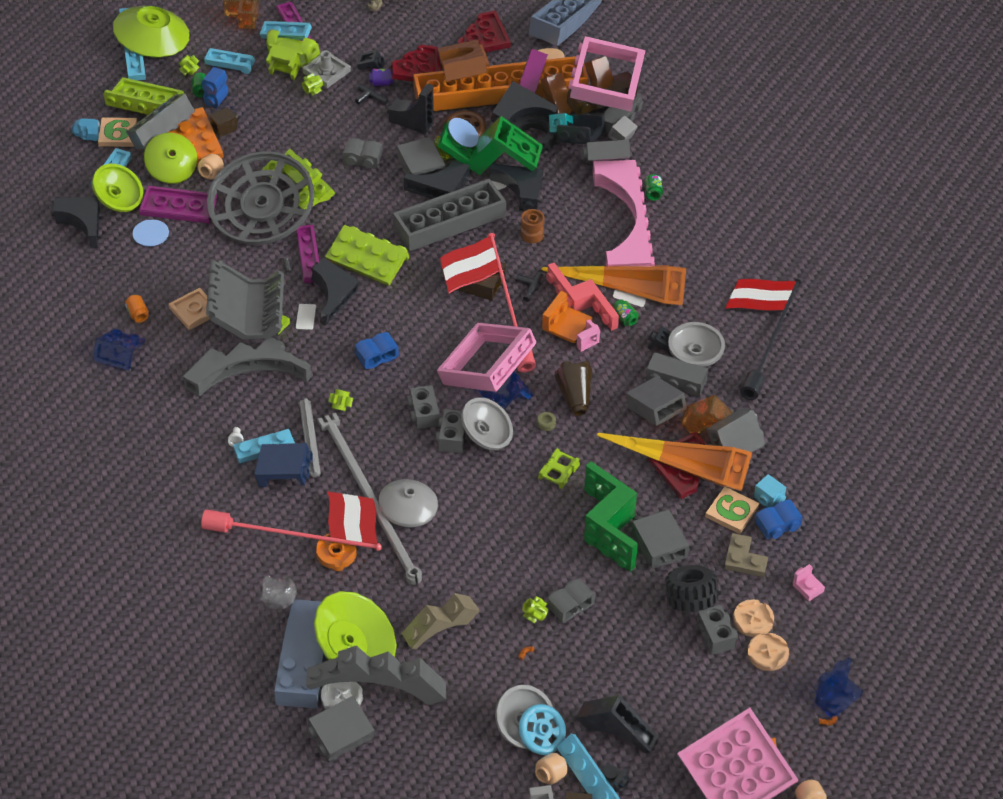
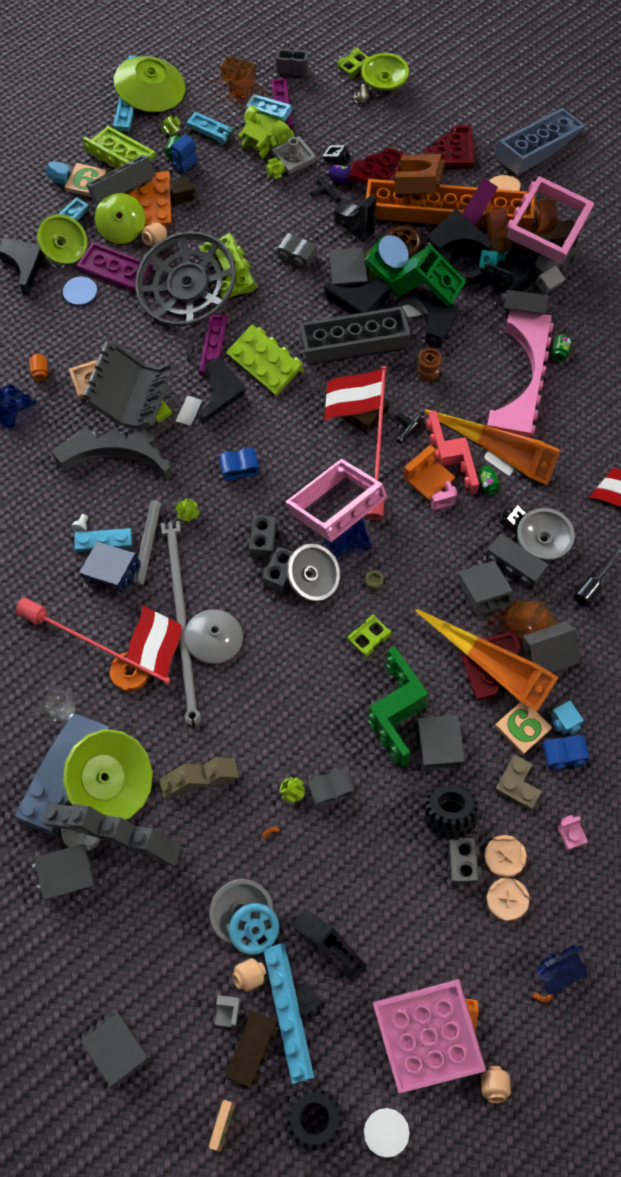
camera: 20 degrees right, 15 degrees up
(575, 385) = (412, 551): dark brown cone -> none

